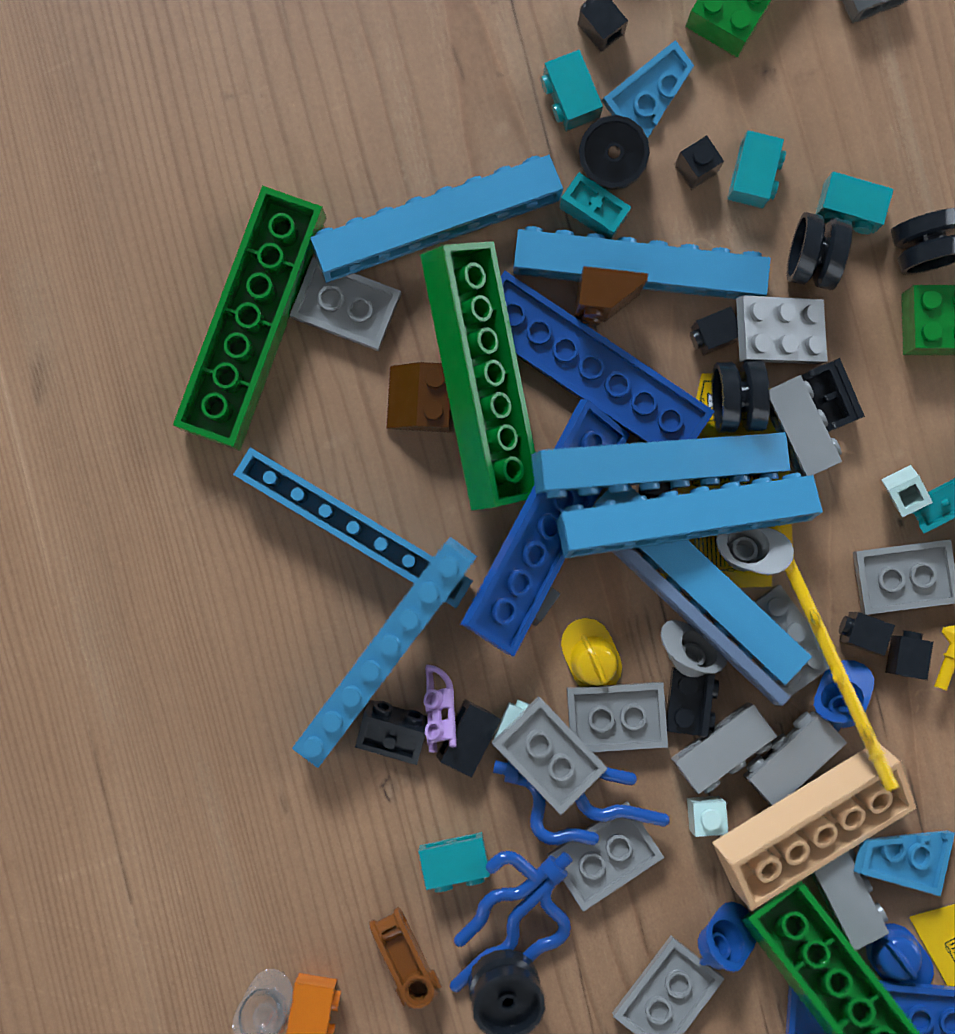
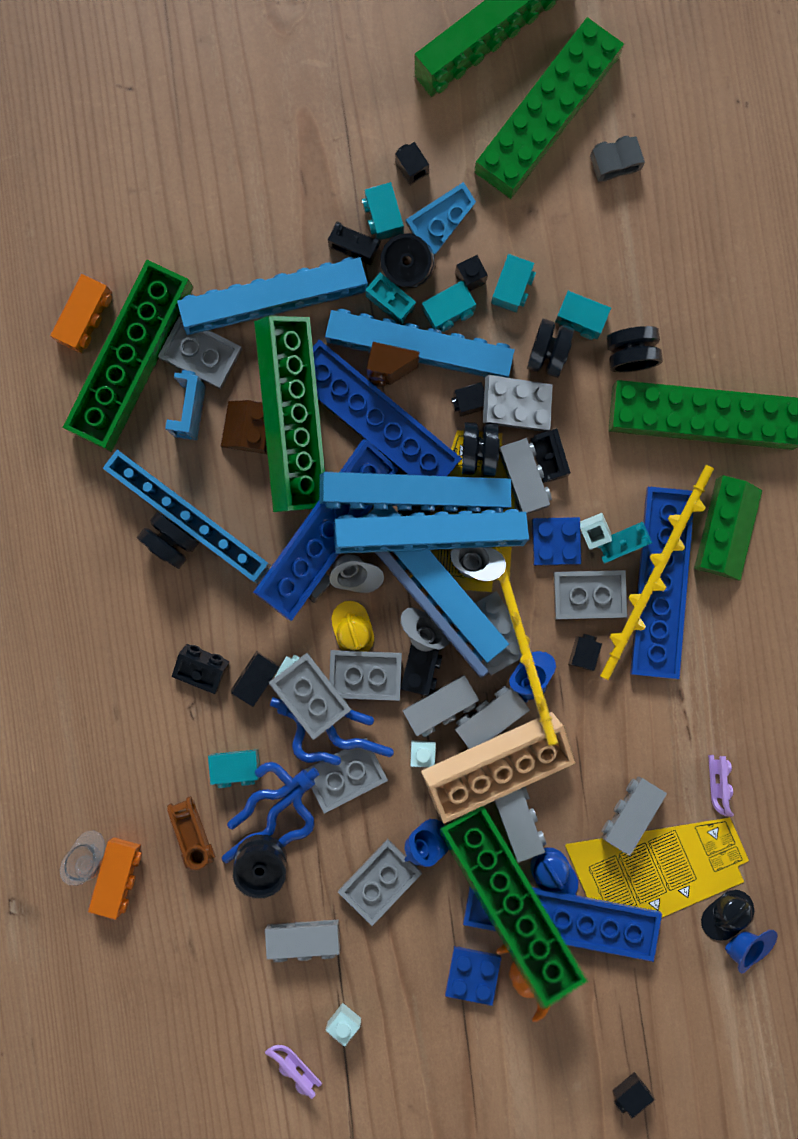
camera: 15 degrees right, 0 degrees up
(180, 268) = (82, 313): none -> orange brick
(330, 566) = (166, 542): none -> black wheel
(343, 407) = (193, 403): none -> dark azure panel
(384, 651) = (198, 607): dark azure brick -> none
(435, 701) = (232, 649): lavender piece -> none
(535, 137) = (353, 243): none -> black hinge
(588, 583) = (355, 575): none -> light grey piece
(674, 209) = (449, 307): none -> teal brick
(852, 509) = (556, 541): none -> blue plate
(866, 633) = (554, 632): black brick -> none
(907, 859) = (566, 801): dark azure wing -> none

